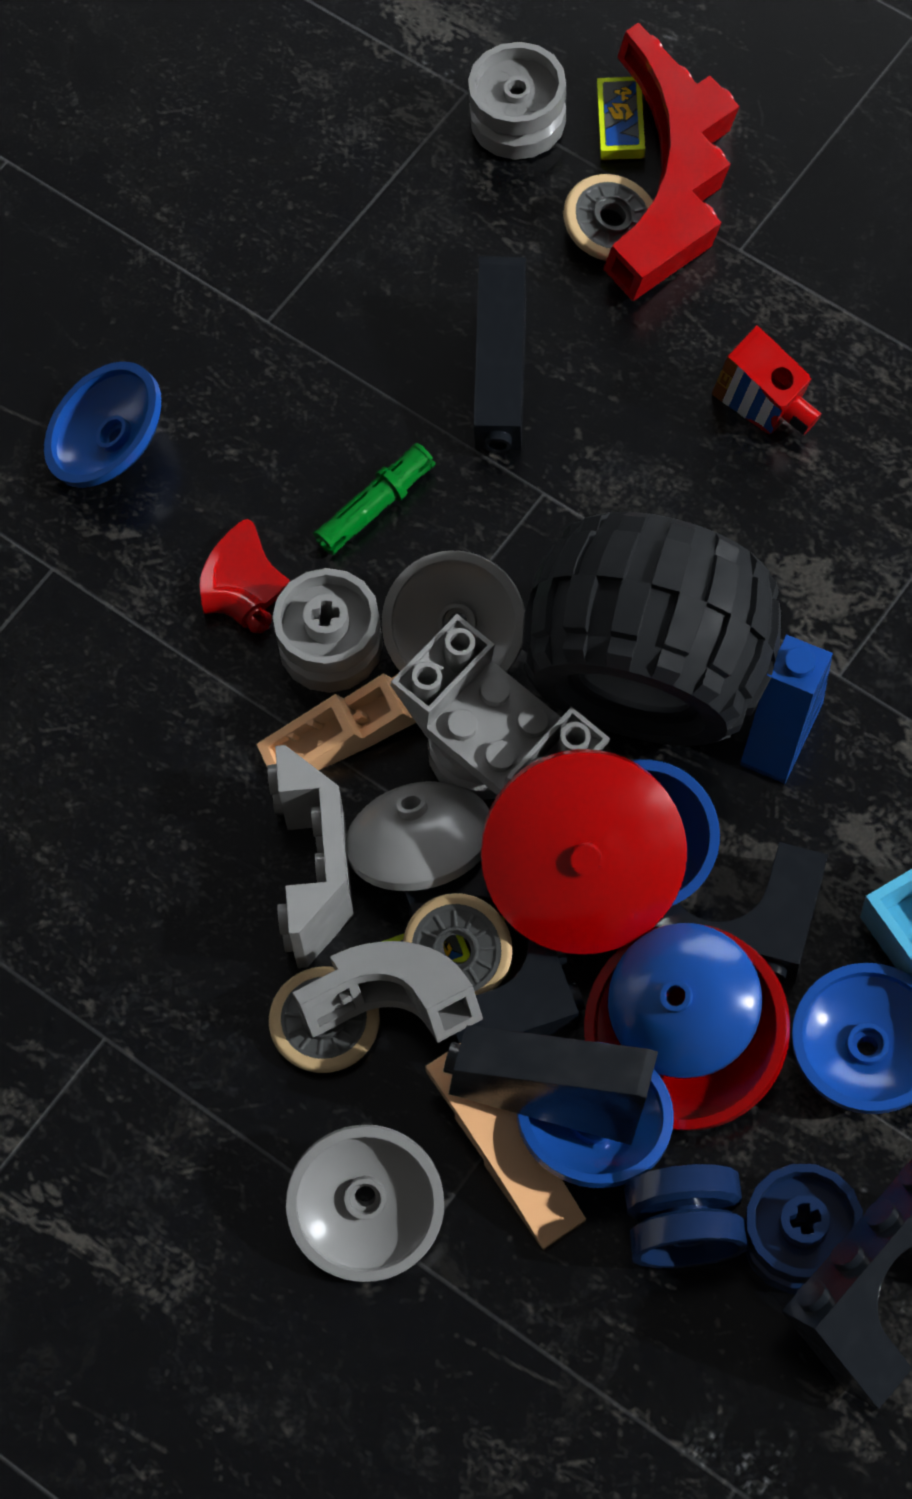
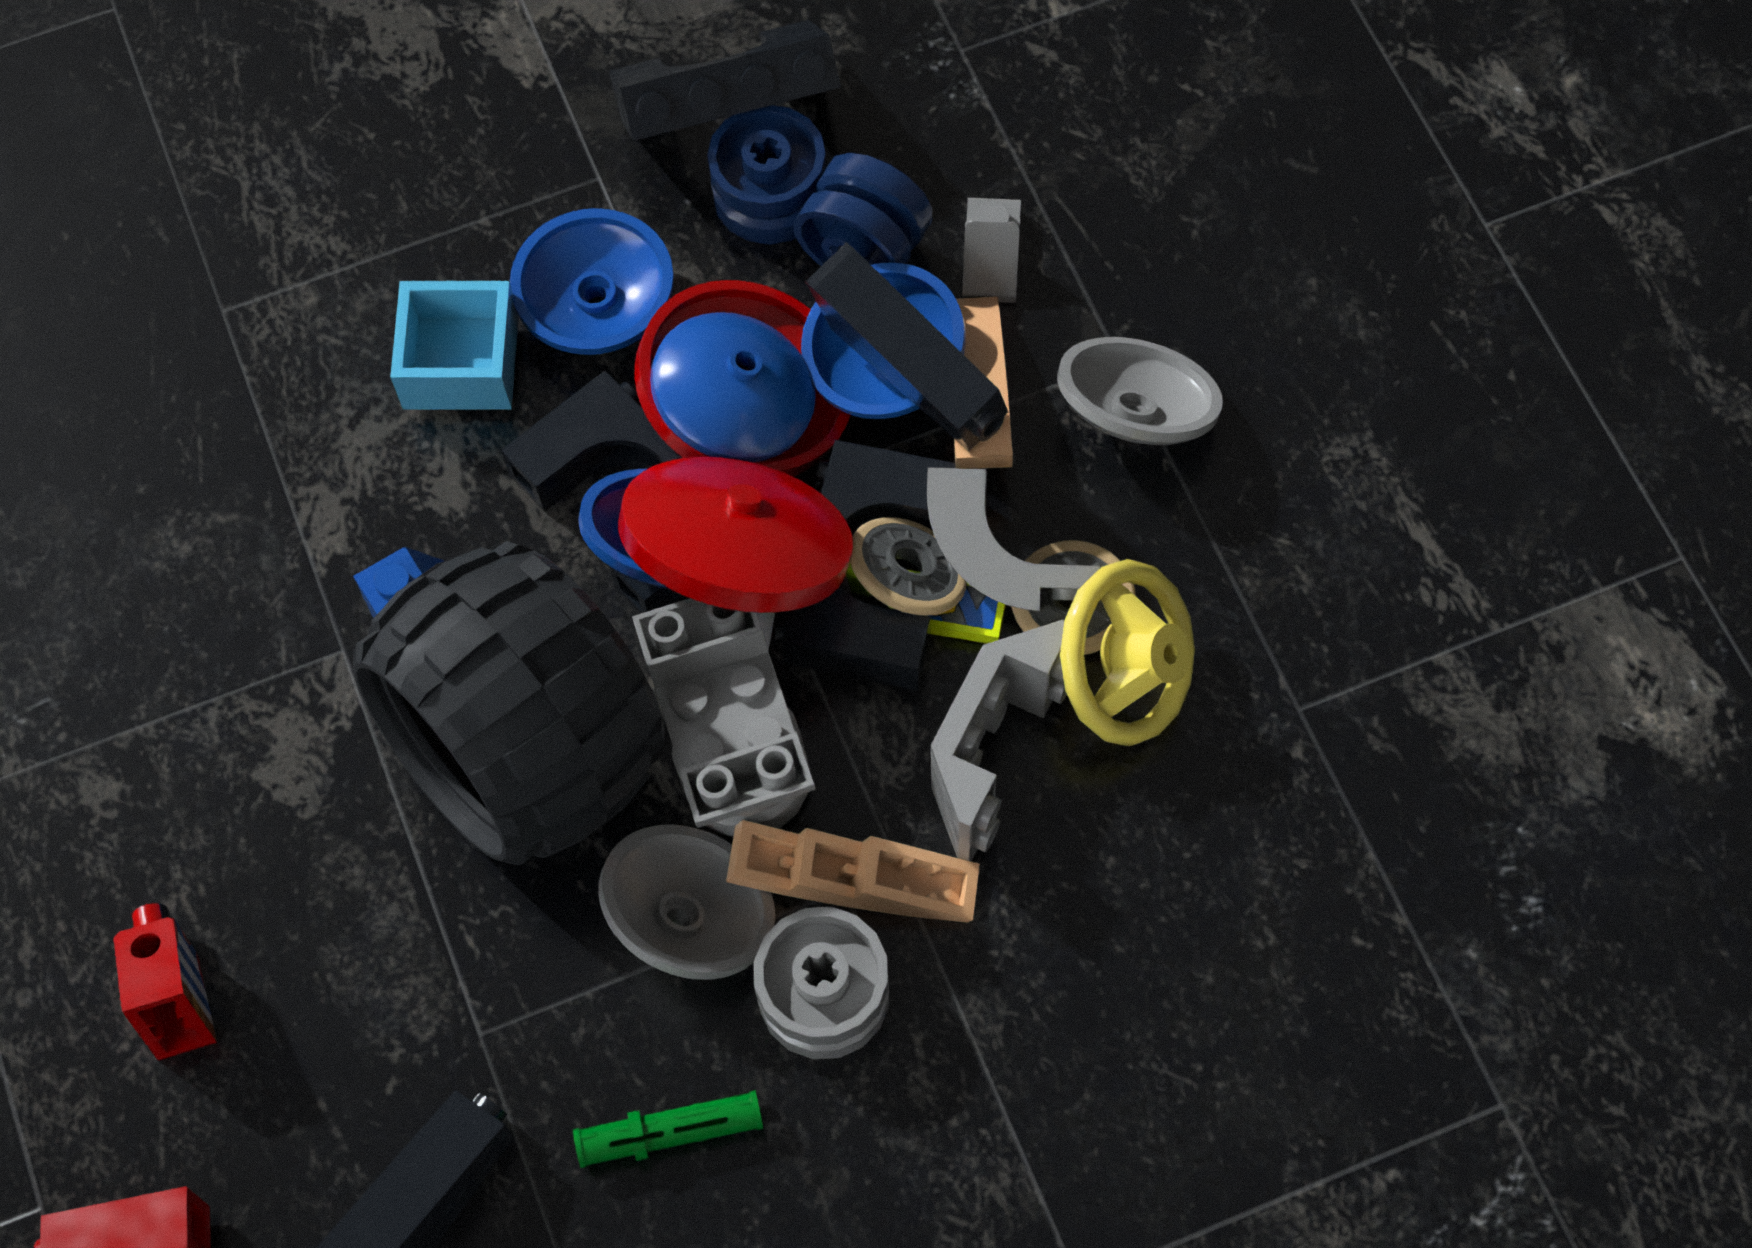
camera: 150 degrees left, 0 degrees up
(233, 961) = (1134, 653): none -> light yellow piece
(241, 579) = (875, 1126): red arm -> none
(417, 836) = (894, 664): light grey dish -> none
(576, 1290) = (991, 249): none -> light grey slope

